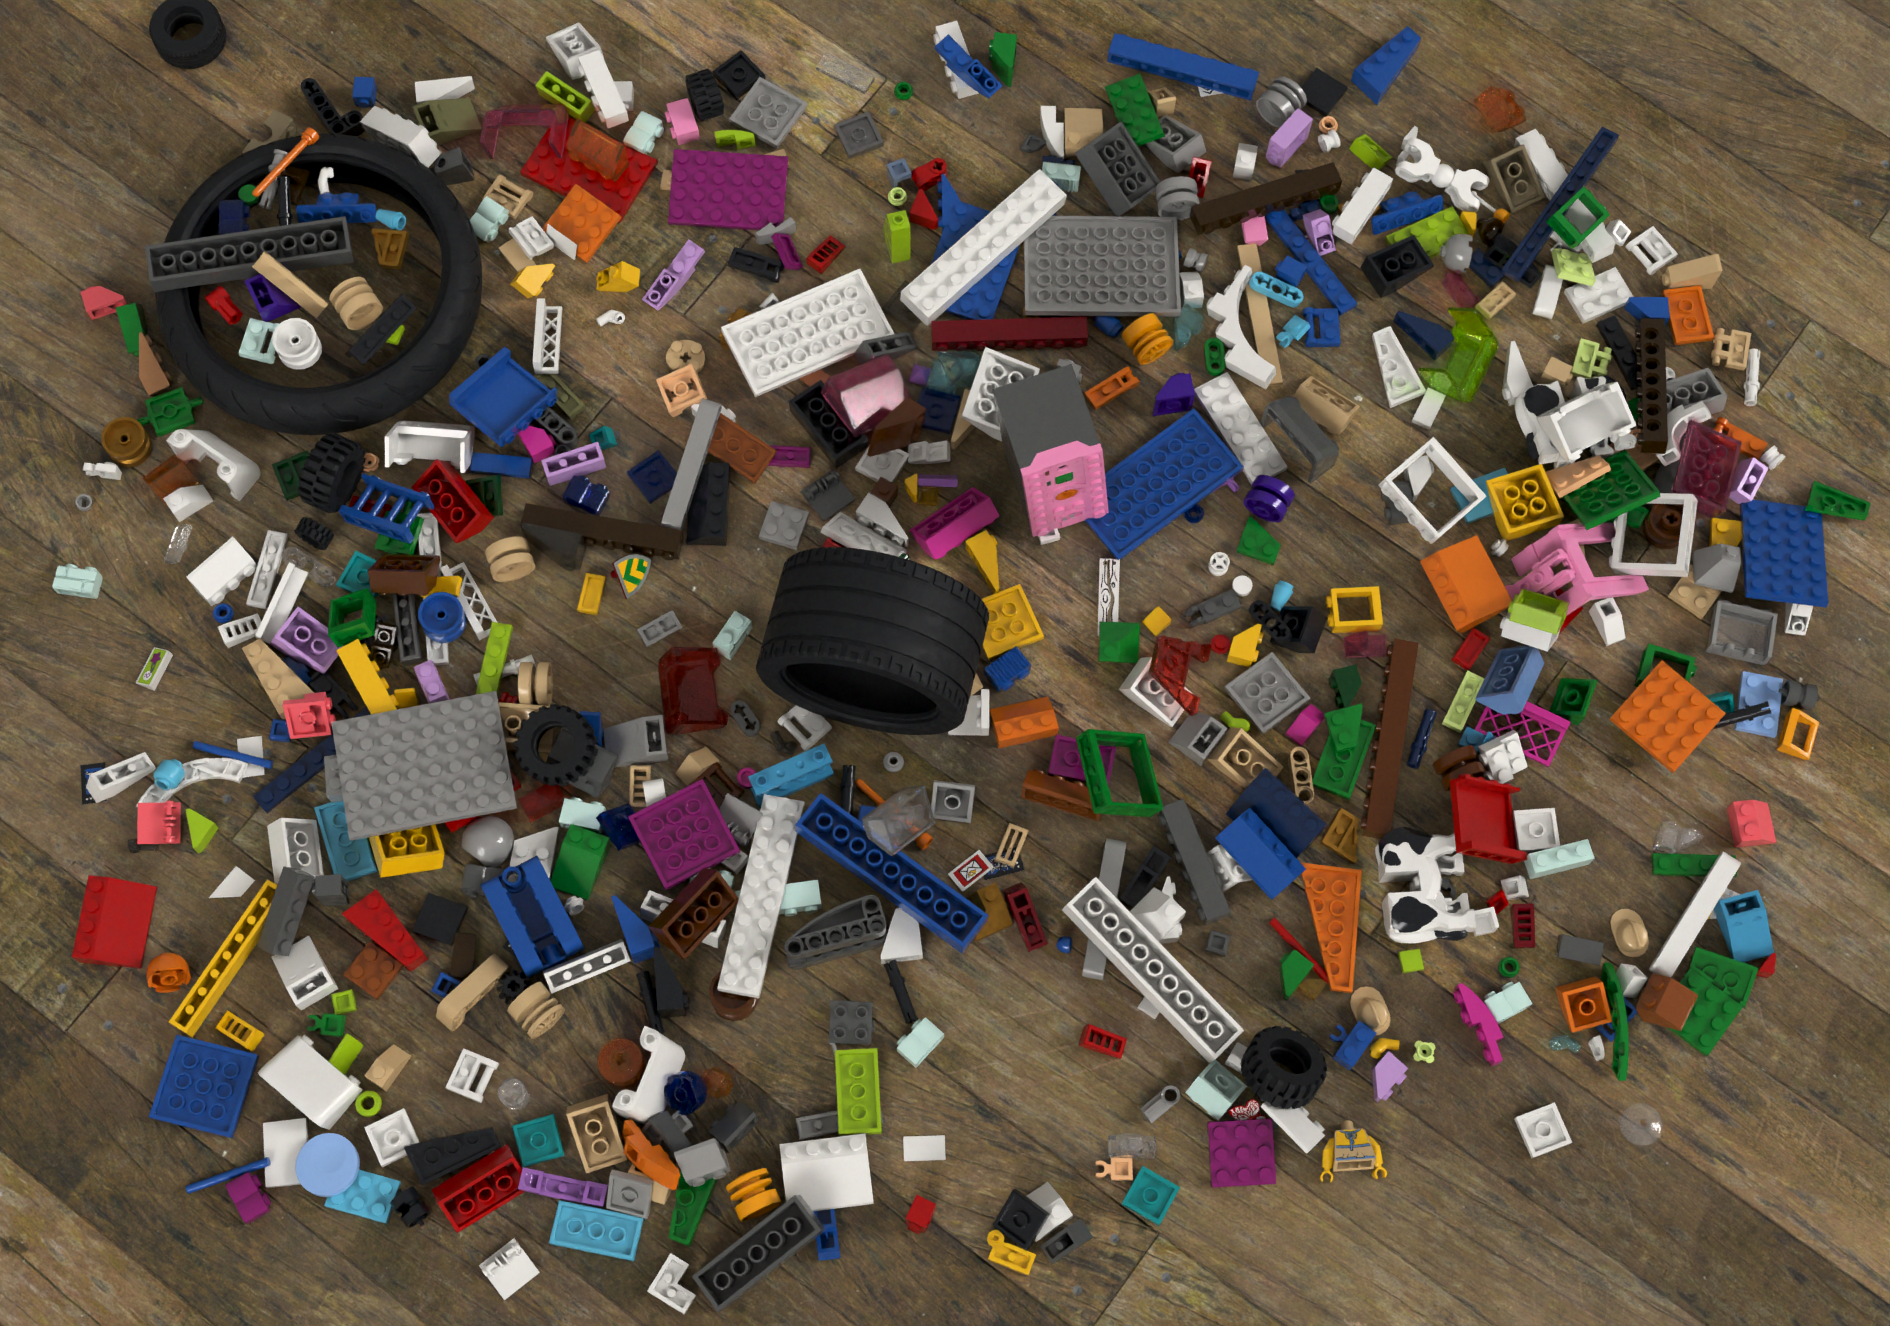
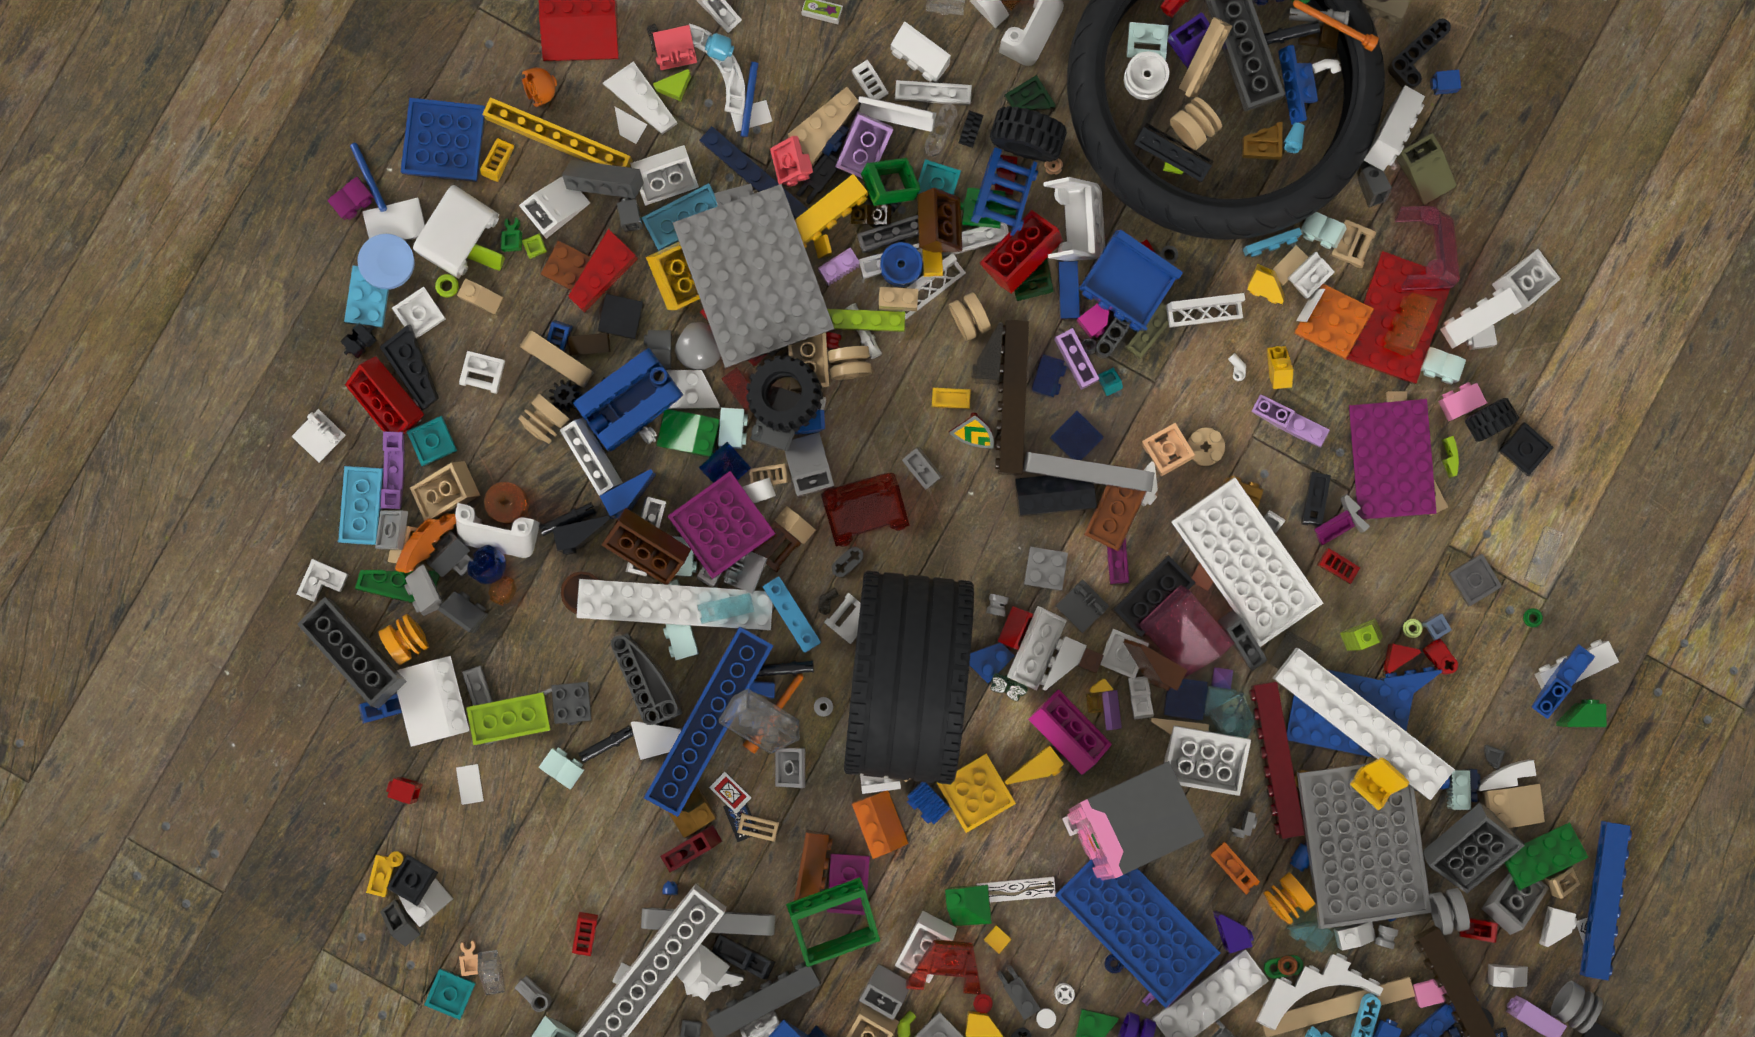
camera: 80 degrees right, 15 degrees up
(199, 870) = (637, 93): none -> white wing
(223, 608) = (883, 55): blue plate -> none
(279, 731) = (777, 136): blue tile -> none
(443, 89) = (1458, 156): white slope -> none
(477, 623) = (898, 299): none -> tan brick
(492, 268) = (1272, 243): none -> medium azure plate
(513, 1094) = (467, 412): clear wheel -> none
(560, 93) = (1469, 280): lime brick -> none
(732, 635) = (925, 537): light aqua brick -> none
(742, 777) = (790, 573): dark pink tile -> none
(768, 112) = (1486, 485): light grey plate -> none
(773, 839) = (726, 608): none -> clear light blue plate
(1041, 238) = (1378, 781): none -> yellow bracket
(1202, 111) = (1557, 925): none -> white slope
(1213, 345) = (1293, 965): none -> dark orange plate

